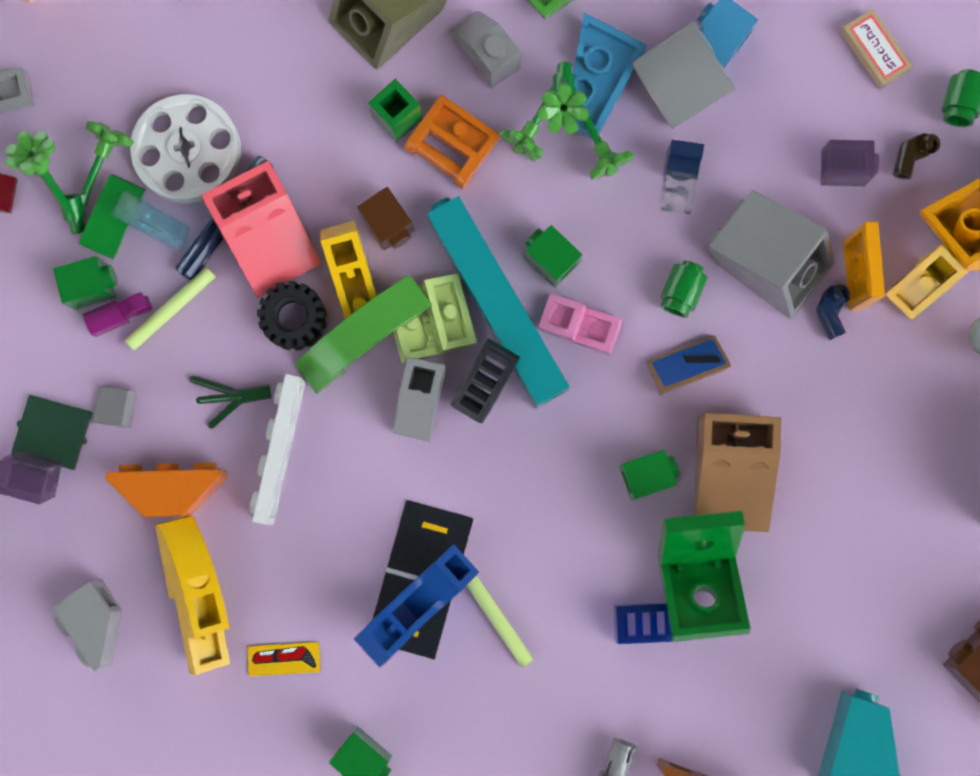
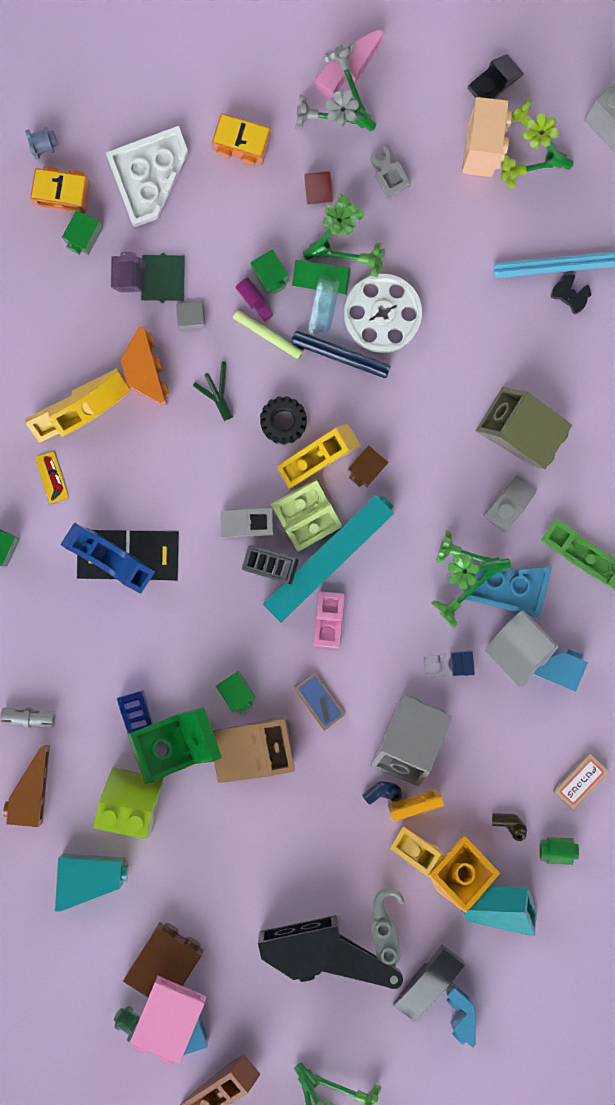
camera: 75 degrees right, 5 degrees up
(92, 622) = (43, 343): light grey slope -> none
(261, 228) = (336, 384): coral slope -> none
(274, 464) = (177, 435): white plate -> none
(362, 332) = (283, 472): bright green slope -> none
(395, 110) = (445, 453): green brick -> none
(458, 131) = (443, 502): orange plate -> none
(499, 622) = (111, 616): yellowish green bar -> none
(552, 255) = (371, 587): green brick -> none
(683, 288) = (371, 685): green brick -> none
(774, 666) = (128, 804): none -> lime slope
(848, 162) = (490, 780): clear purple brick -> none

